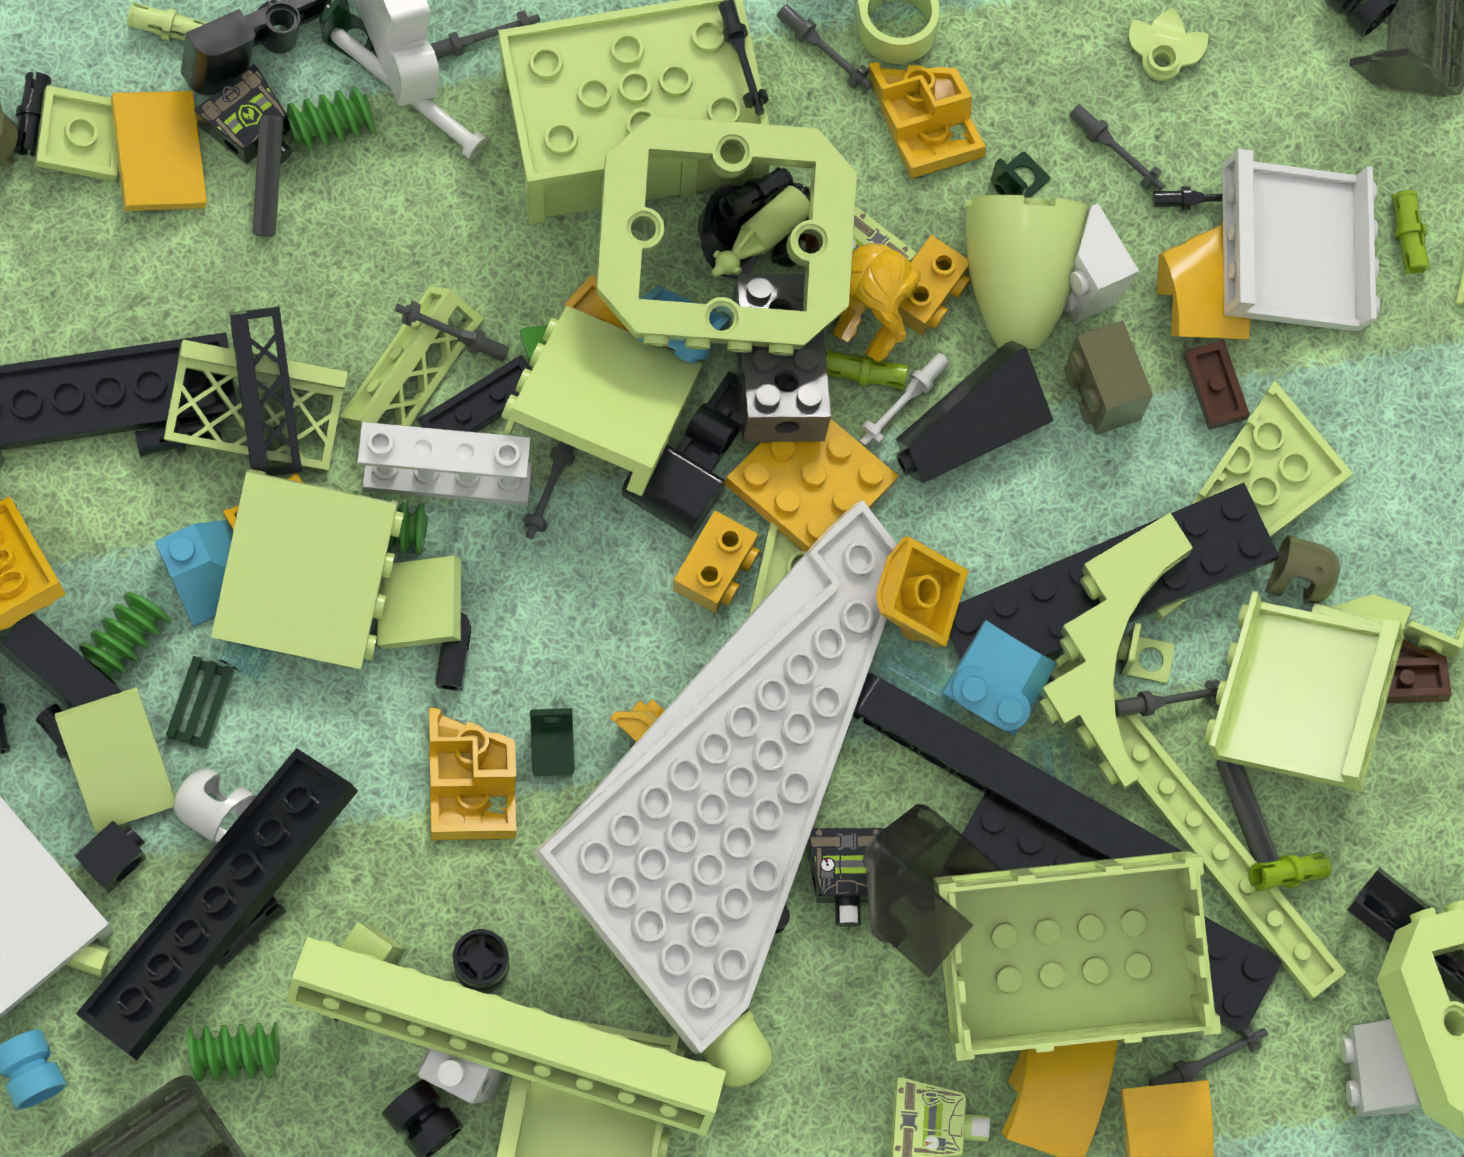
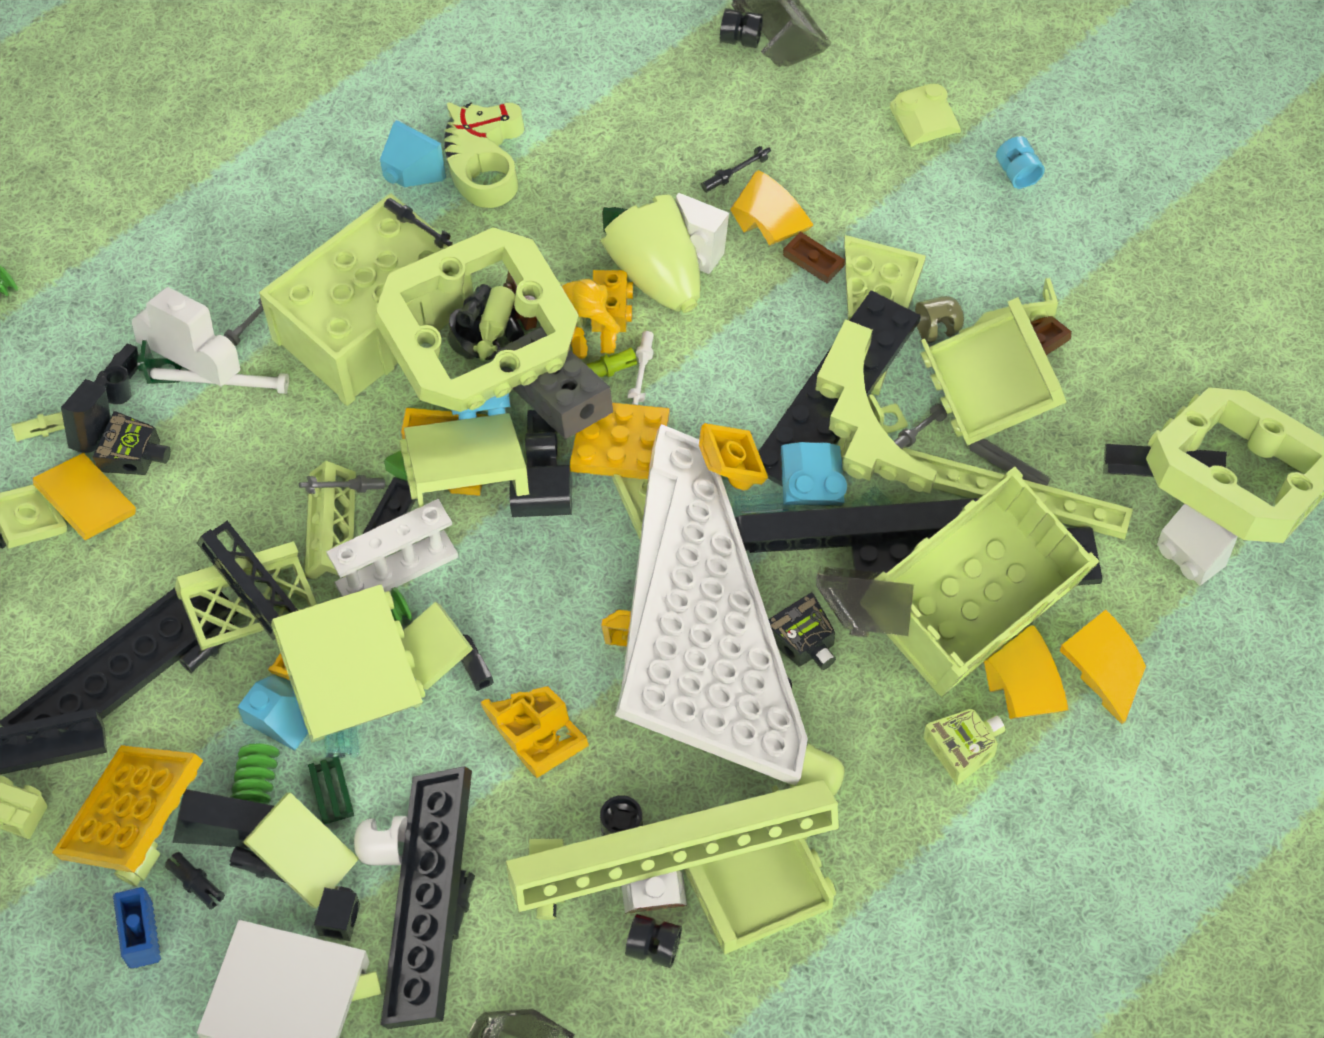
camera: 25 degrees left, 15 degrees down
(234, 1052) = (502, 977): bright green piece -> none
(267, 176) = (165, 467): dark grey axle -> none
(330, 118) = (181, 414): bright green piece -> none
(552, 742) = (570, 673): dark green bracket -> none
(562, 456) = (460, 517): dark grey piece -> none
(716, 562) = (597, 516): yellow brick -> none
(806, 31) = (439, 216): dark grey piece -> none
(920, 110) = (538, 218): yellow slope -> none
(977, 416) = (692, 346): black slope -> none
(1098, 132) = (647, 172): dark grey piece -> none
(1108, 378) = (752, 283): olive brick -> none
(1168, 41) = (649, 108): yellowish green plate -> none
(1186, 1071) = (1108, 581): dark grey piece -> none
(1289, 871) = (1058, 475): lime pin -> none
(1299, 244) = (804, 160): white panel -> none
(1410, 232) = (858, 124): lime pin -> none

